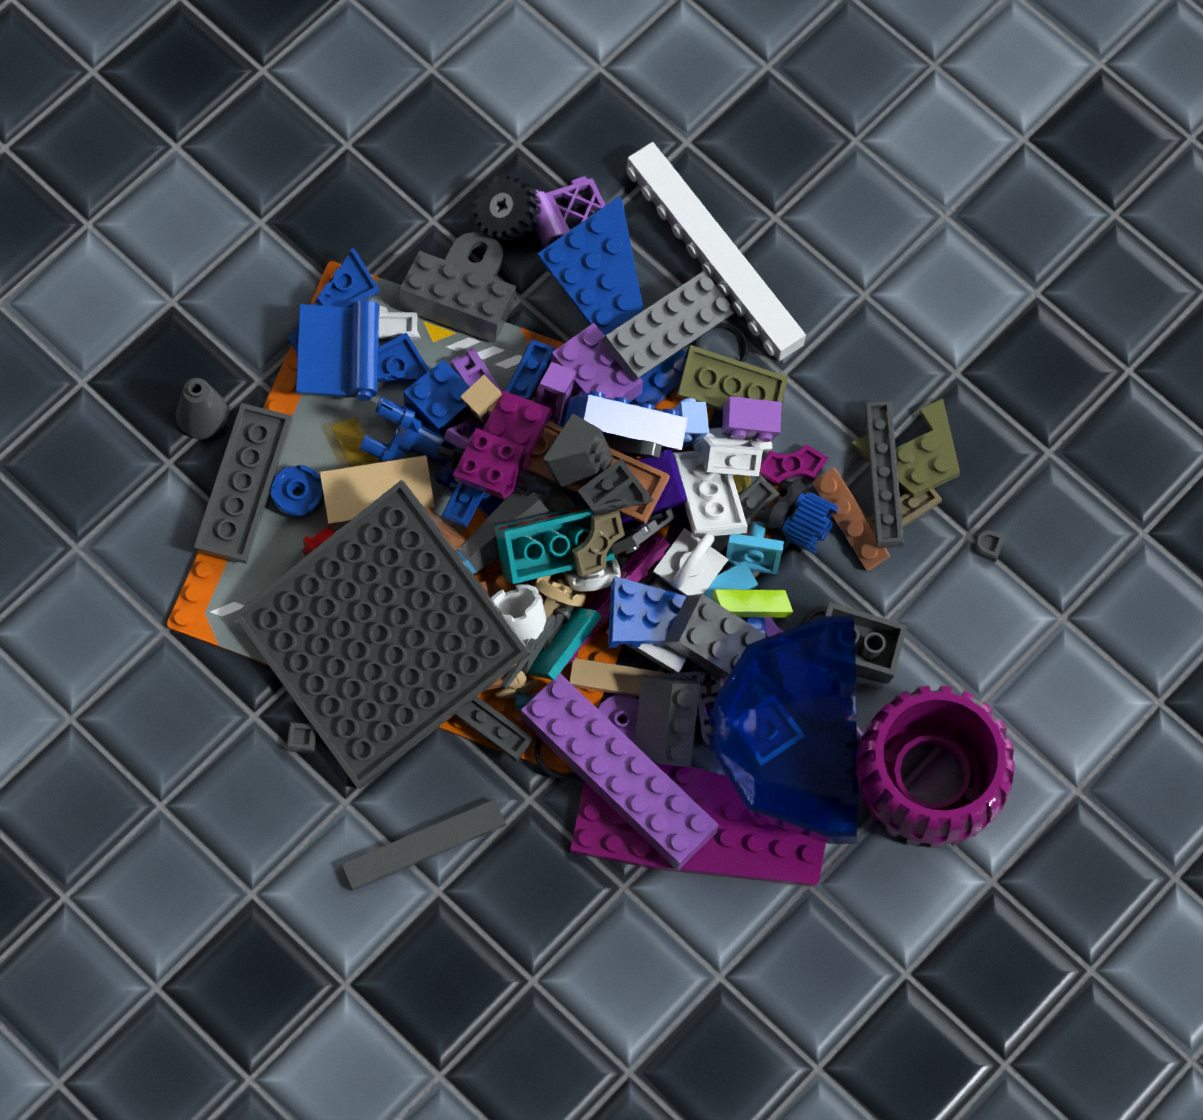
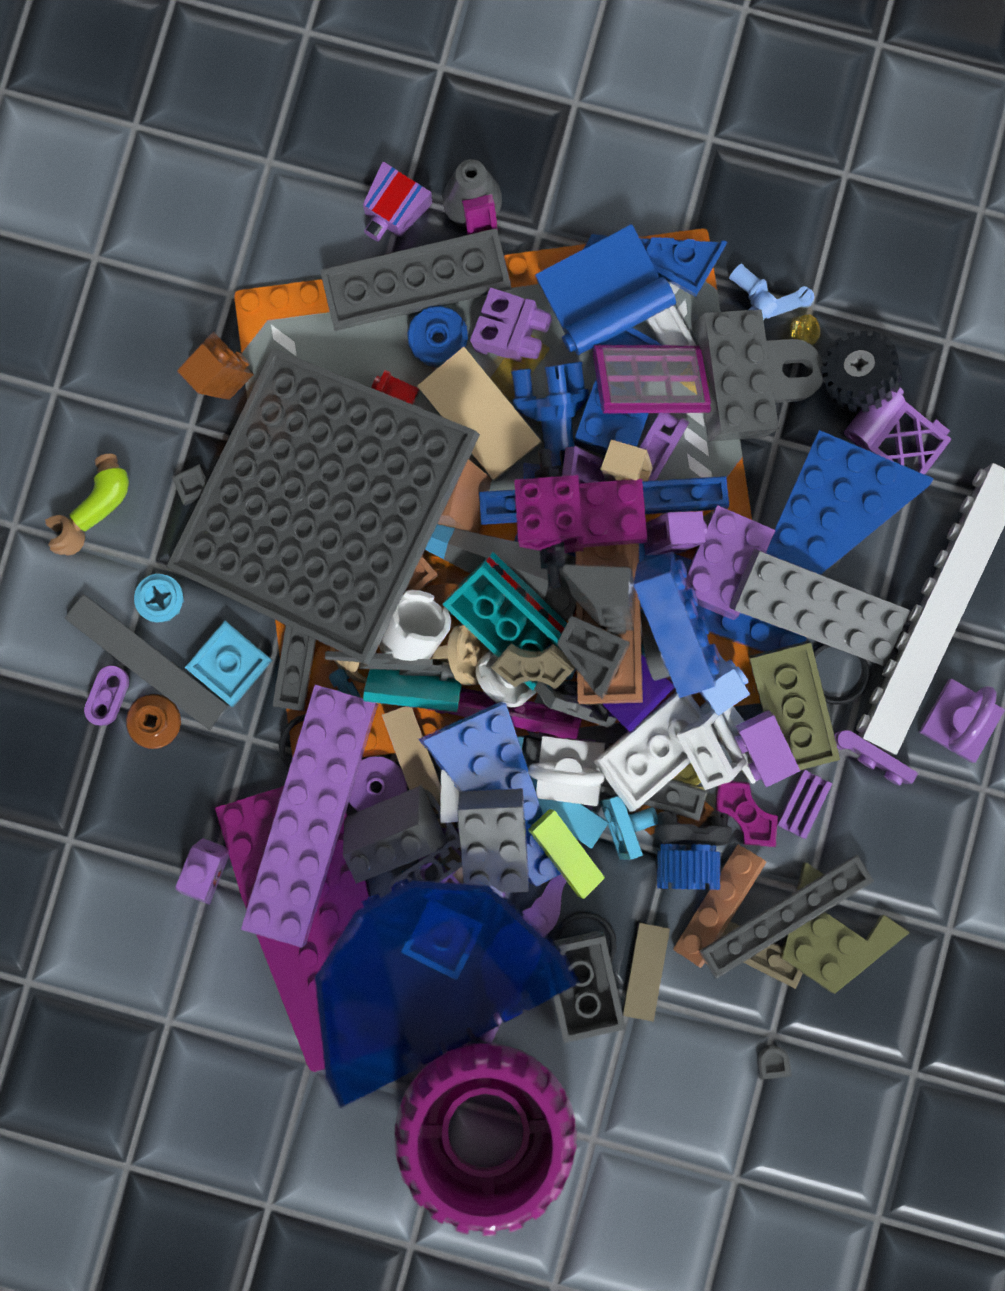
camera: 65 degrees right, 15 degrees up
(170, 469) = (394, 203): none -> torso
(219, 662) = (216, 369): none -> dark orange wedge
(225, 408) = (479, 214): none -> magenta tile
(272, 801) = (108, 493): none -> piece
(321, 434) = (509, 326): none -> medium lavender hips
(370, 799) = (146, 593): none -> medium azure gear
(409, 249) = (762, 299): none -> light blue pin
(426, 352) = (651, 379): none -> clear piece
(434, 888) = (105, 695): none -> medium lavender plate
(449, 231) = (805, 328): none -> clear yellow tile
(462, 781) = (228, 664): none -> medium azure plate
(464, 875) = (166, 726): none -> dark orange piece
(617, 882) = (202, 870): none -> medium lavender torso
(795, 404) = (793, 828): none -> medium lavender tile
(801, 351) = (872, 756): none -> medium lavender plate
(805, 279) = (963, 719): none -> medium lavender tile
(870, 596) = (646, 971): none -> dark tan tile

